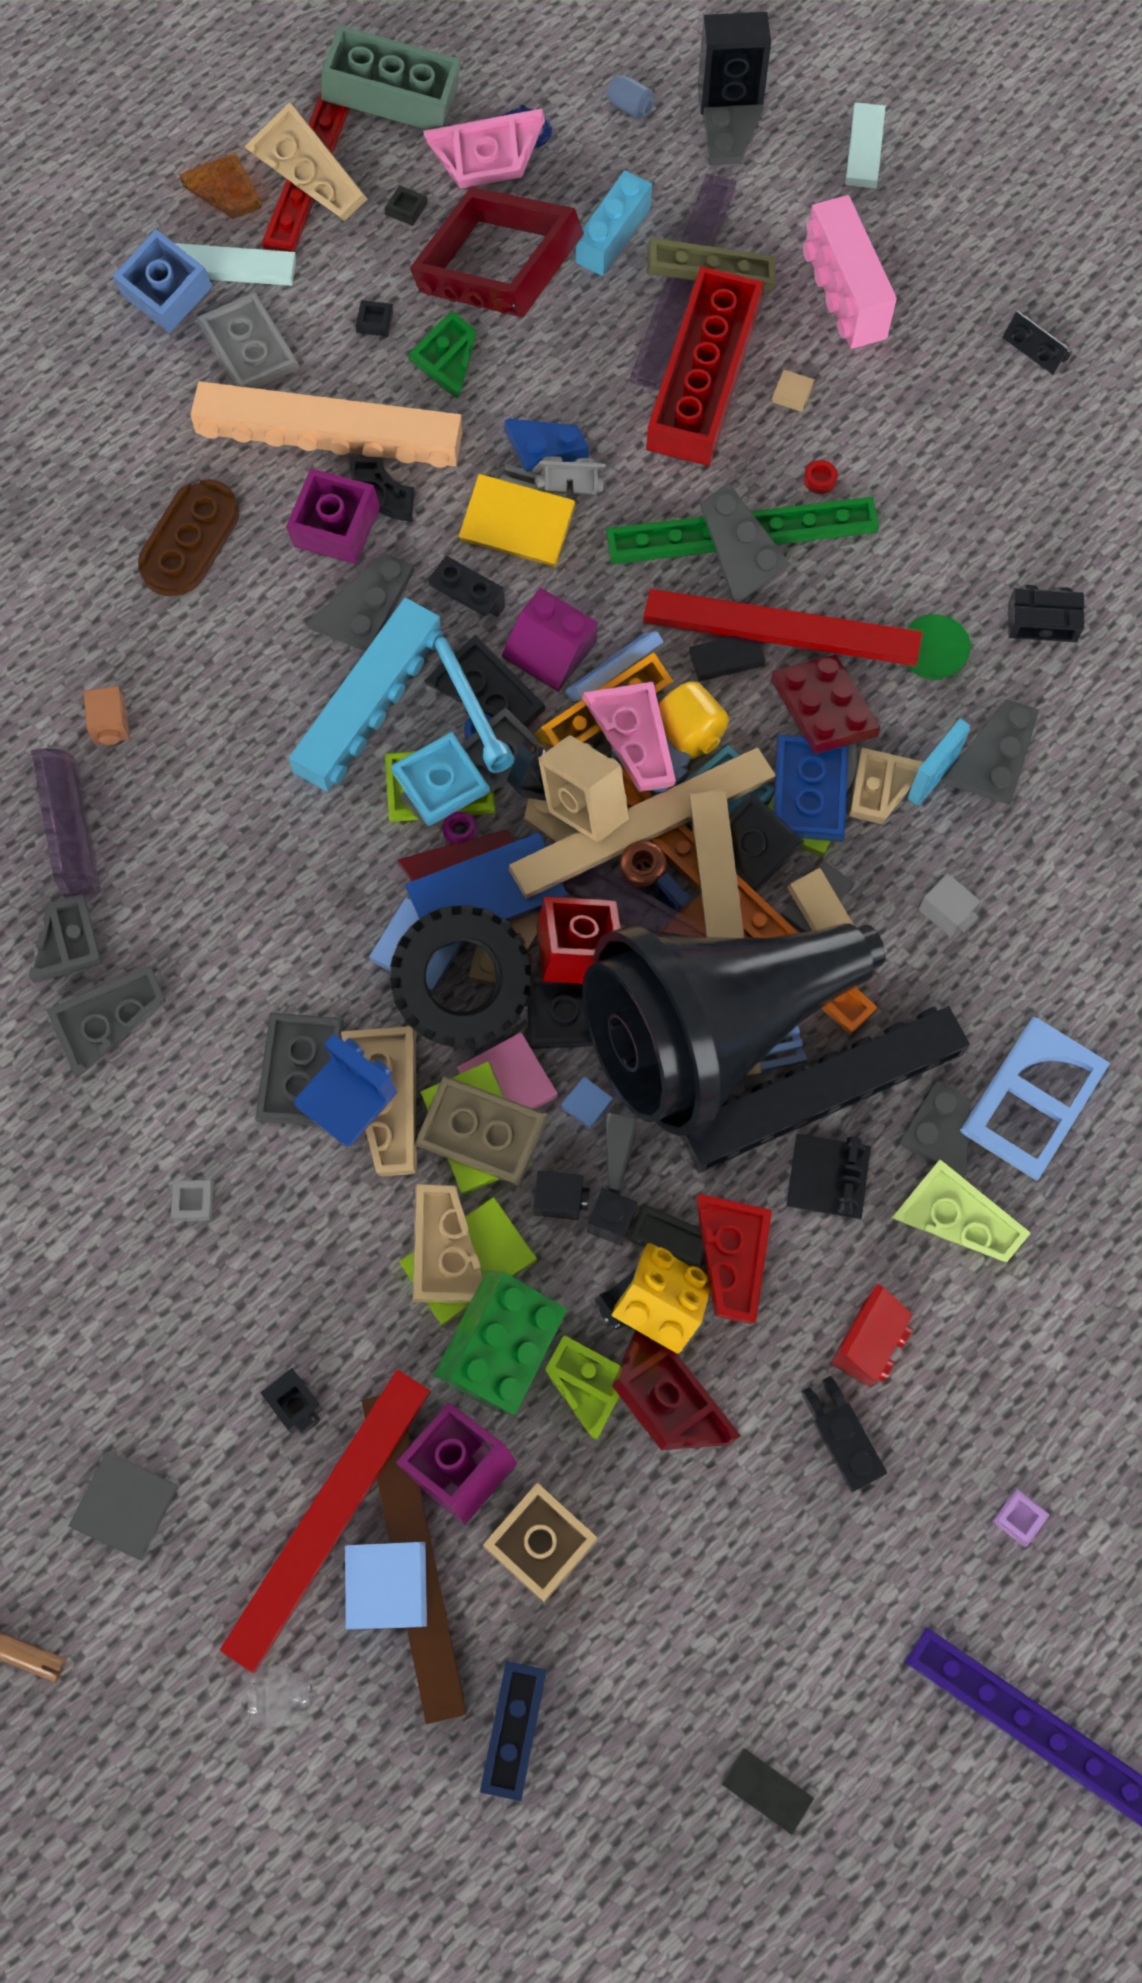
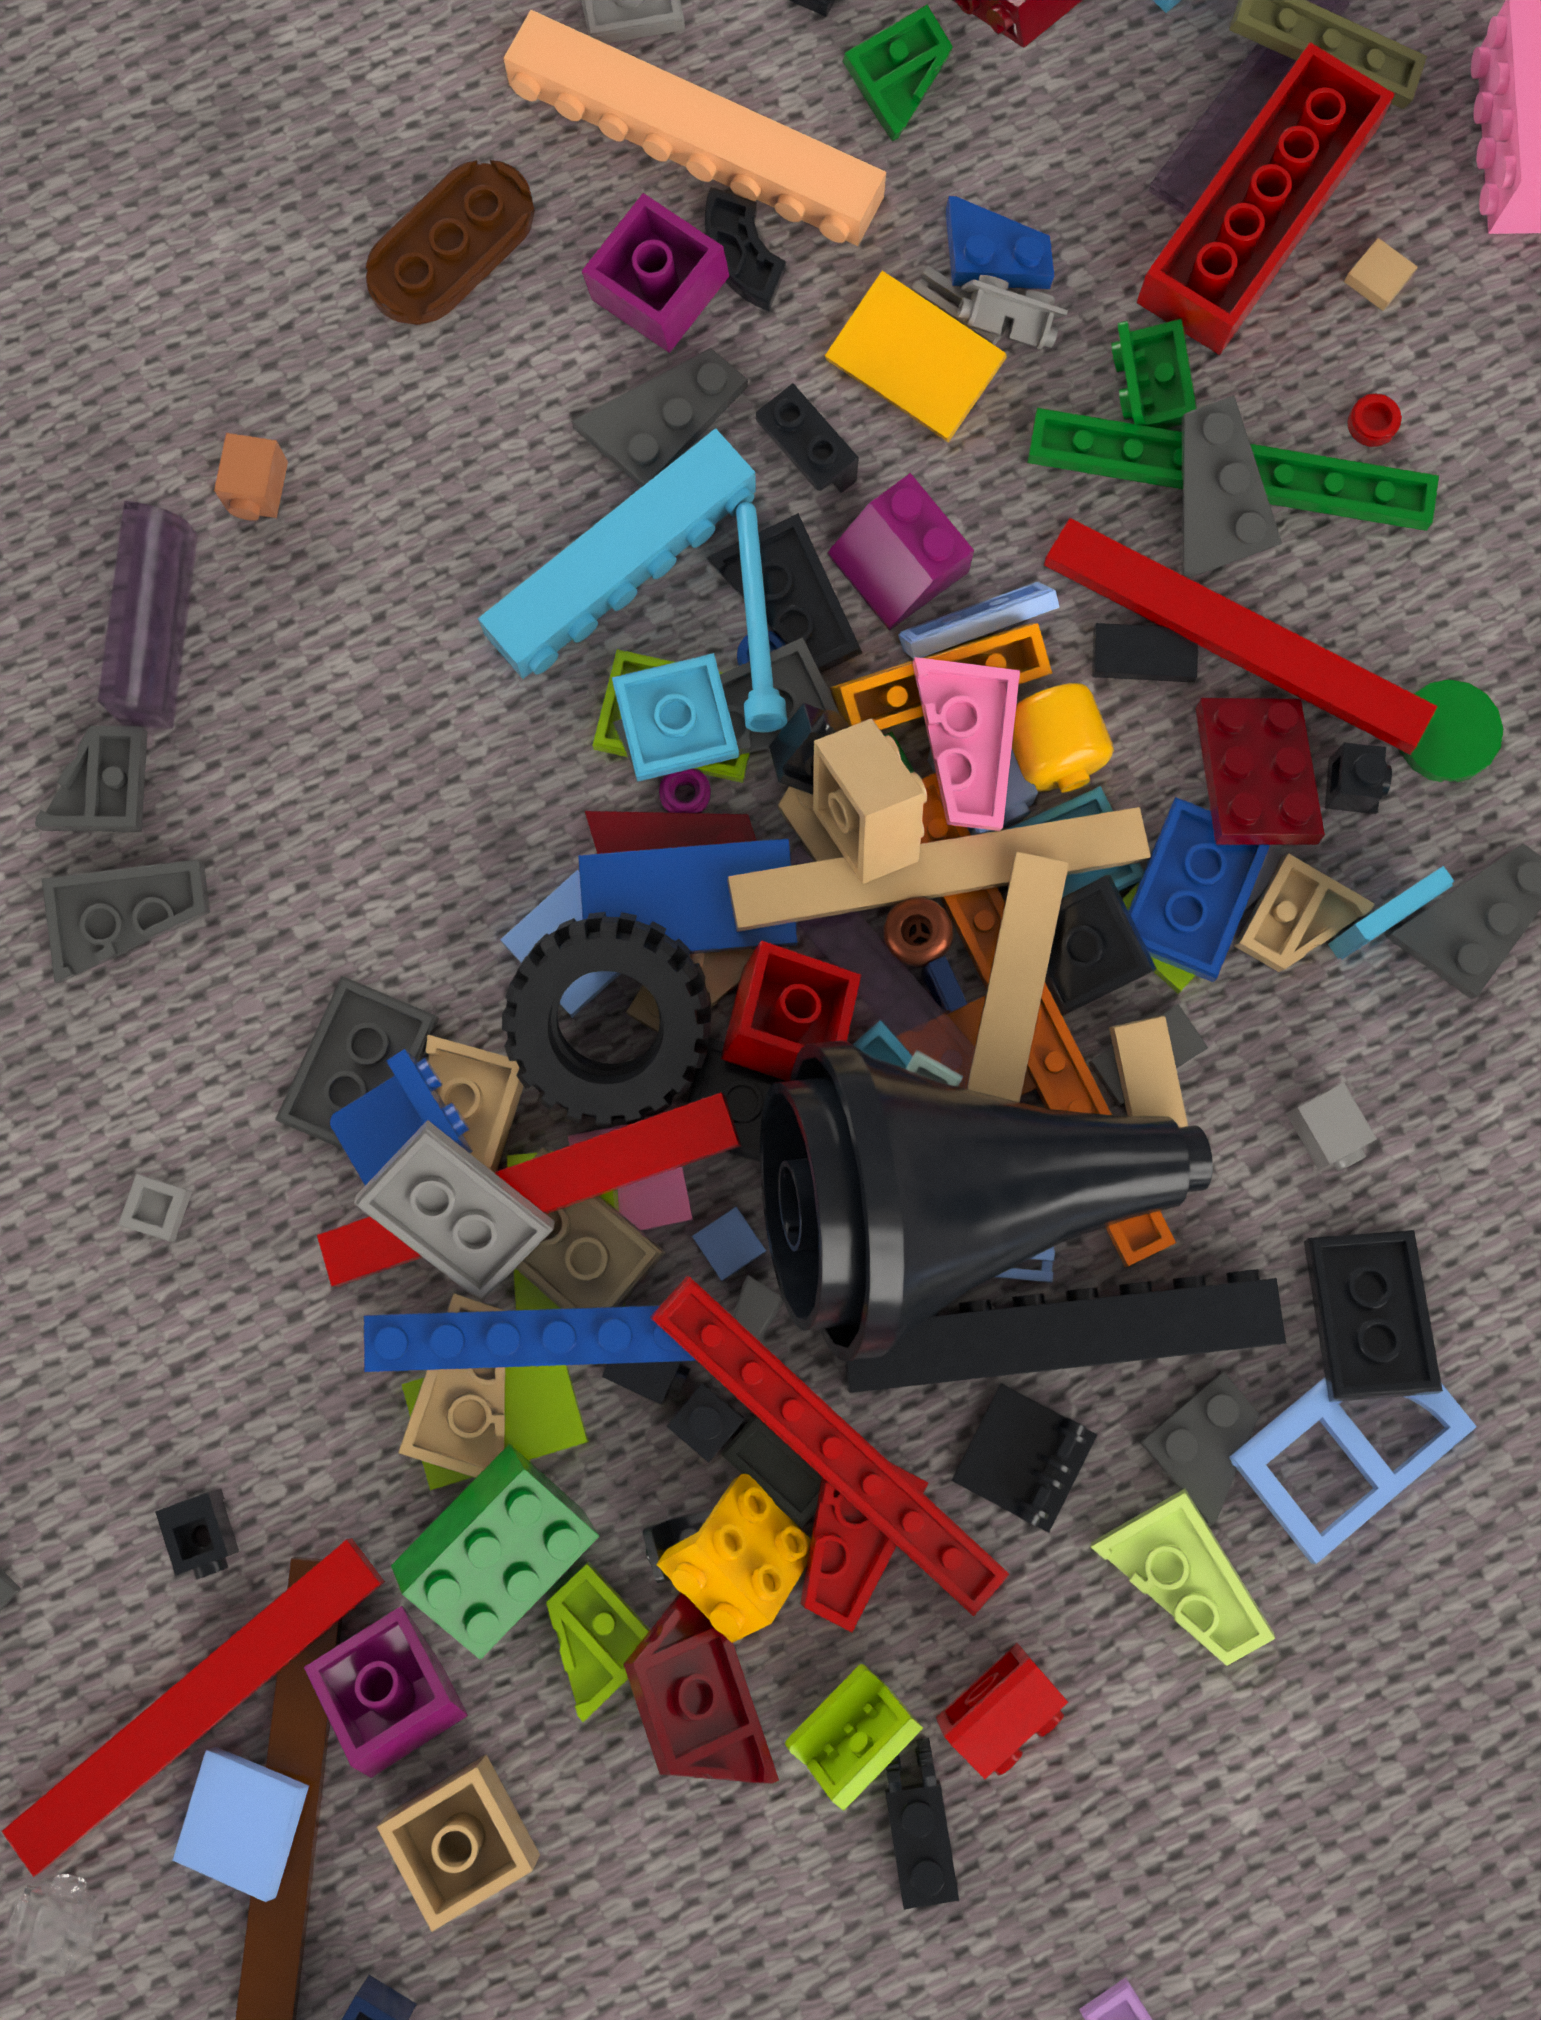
camera: 20 degrees right, 10 degrees up
(401, 1127) = (454, 1211): none -> light grey tile
(442, 1104) = (559, 1179): none -> red tile
(478, 1194) = (516, 1339): none -> blue plate
(675, 487) = (1156, 374): none -> green bracket
(699, 1201) = (829, 1445): none -> red tile
(779, 1386) = (853, 1735): none -> lime bracket
(888, 690) = (1357, 778): none -> black brick
(1018, 1014) = (1372, 1316): none -> black tile

